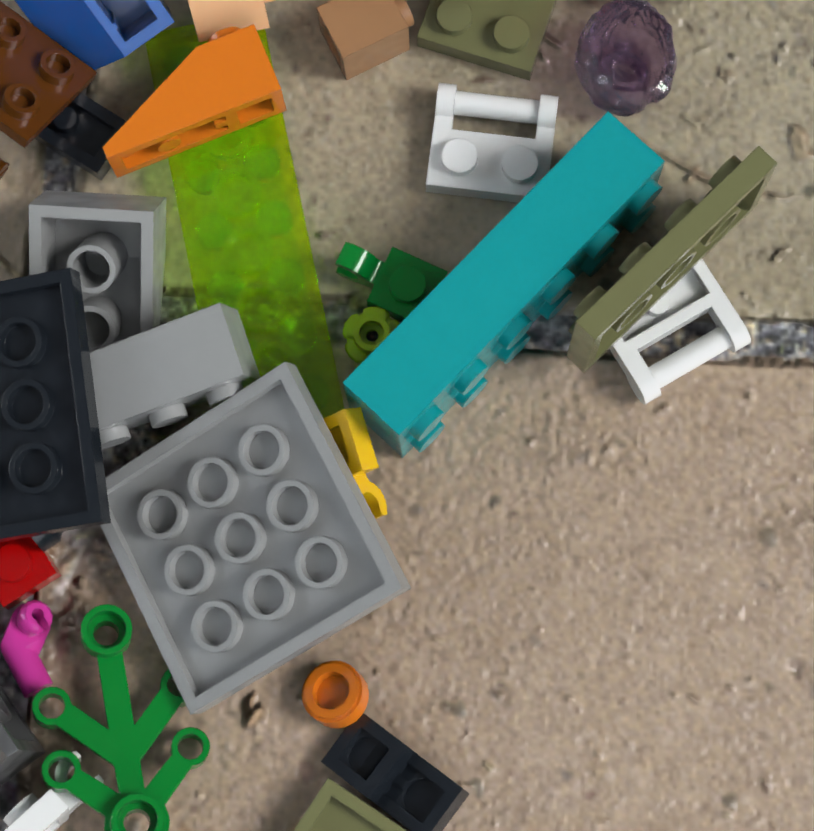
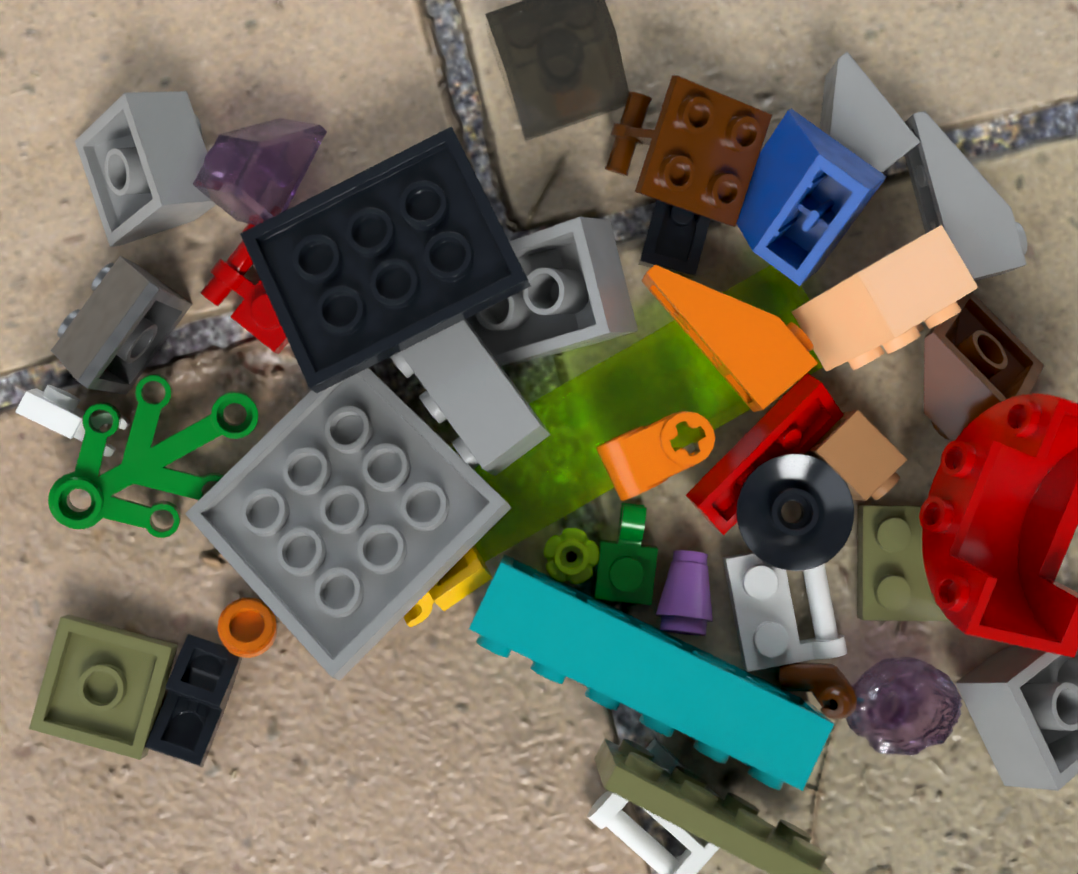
camera: 65 degrees right, 10 degrees up
(23, 644) = (204, 344): dark pink arm -> none
(289, 215) = (645, 454): none -> orange piece
(333, 114) = (785, 429): none -> red plate
(393, 72) = (824, 517): none -> black dish
(444, 230) = (686, 595): none -> medium lavender cone
(578, 120) = (826, 684): none -> reddish brown arm

